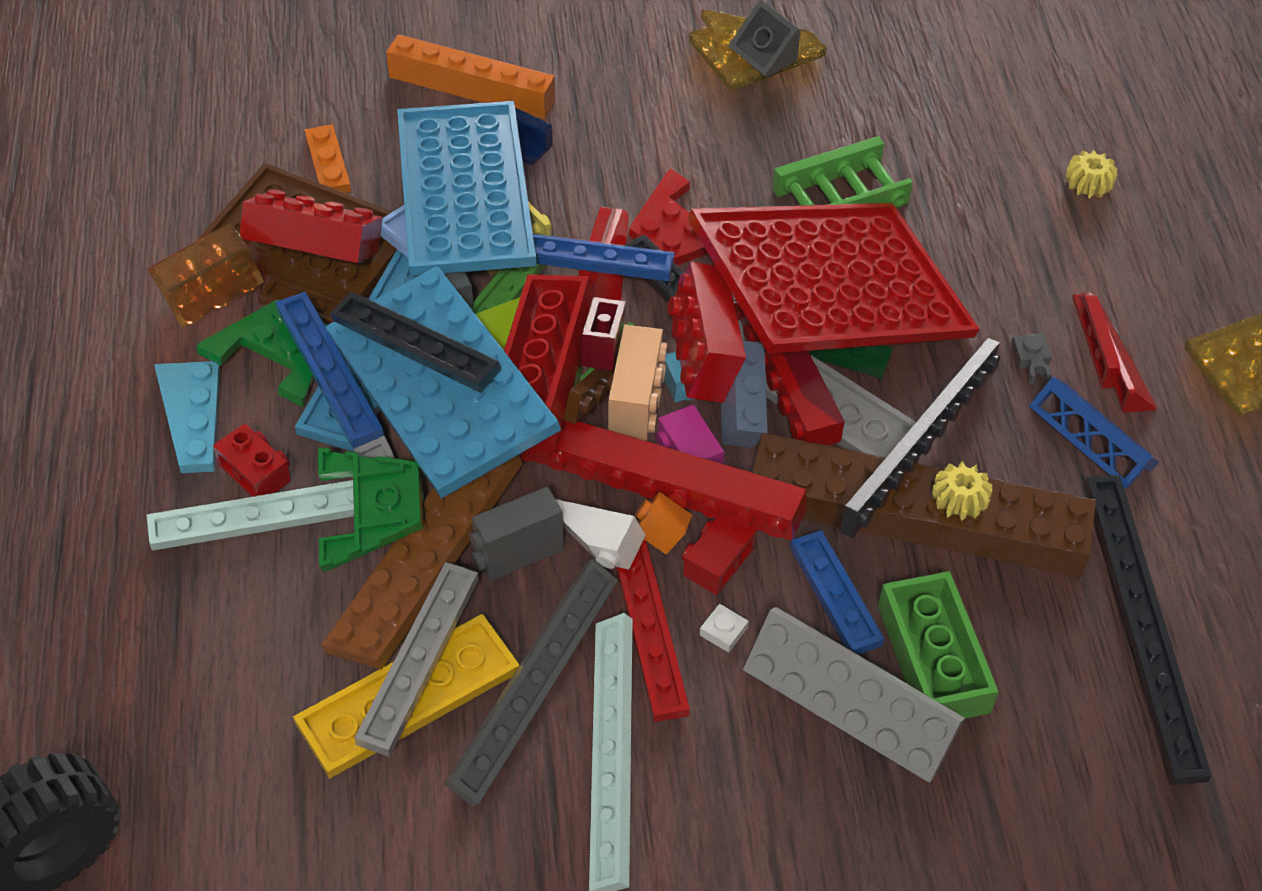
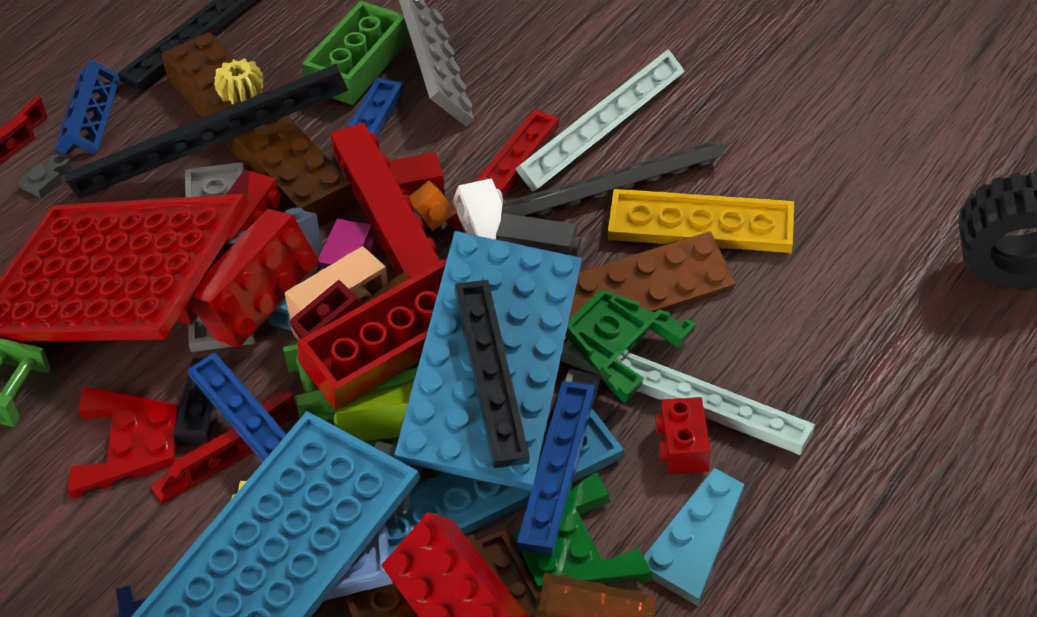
camera: 135 degrees left, 5 degrees down
(416, 660) = (678, 218): light grey plate -> none
(724, 628) = (458, 147): white plate -> none

